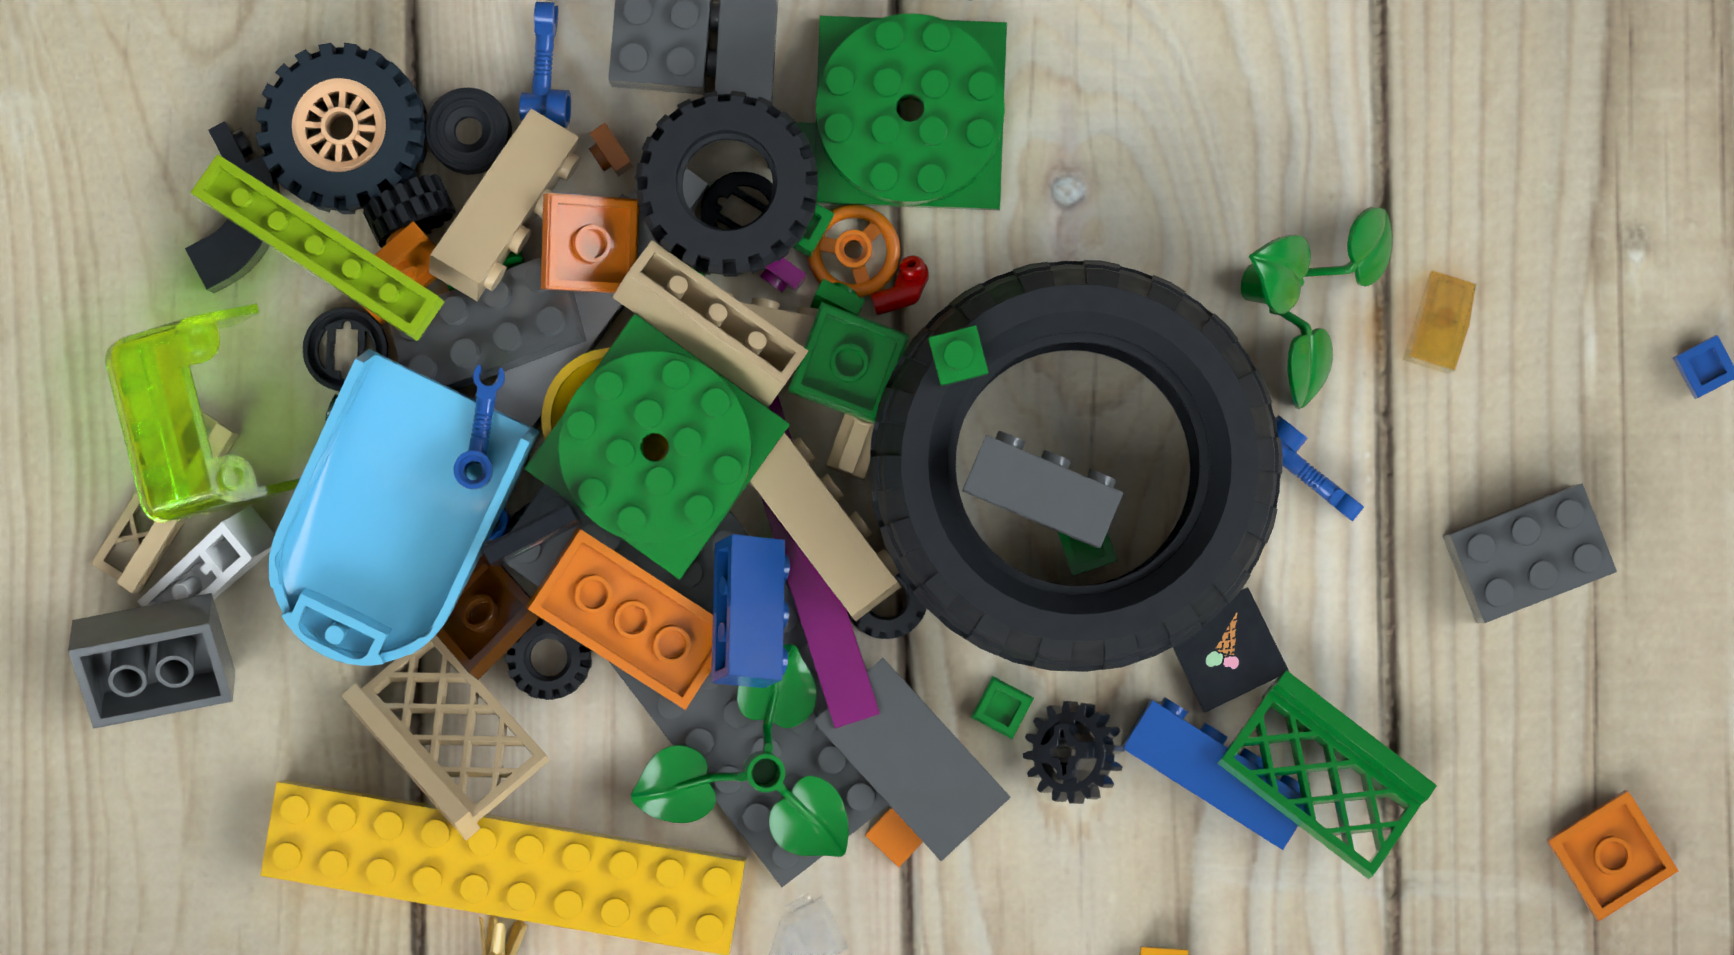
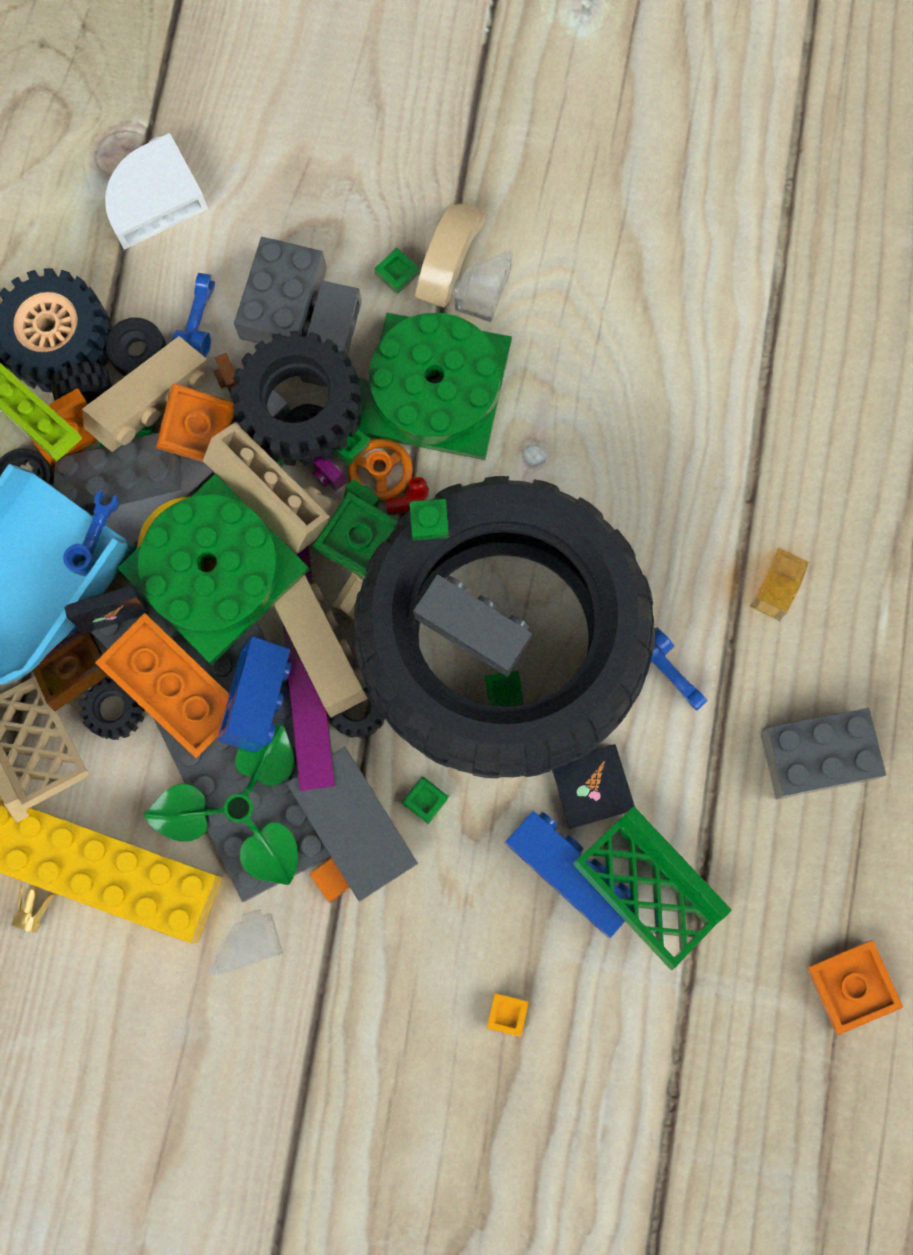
camera: 10 degrees right, 10 degrees down
(1053, 745) = (465, 842): black gear -> none
(1277, 281) = (675, 512): green plant -> none

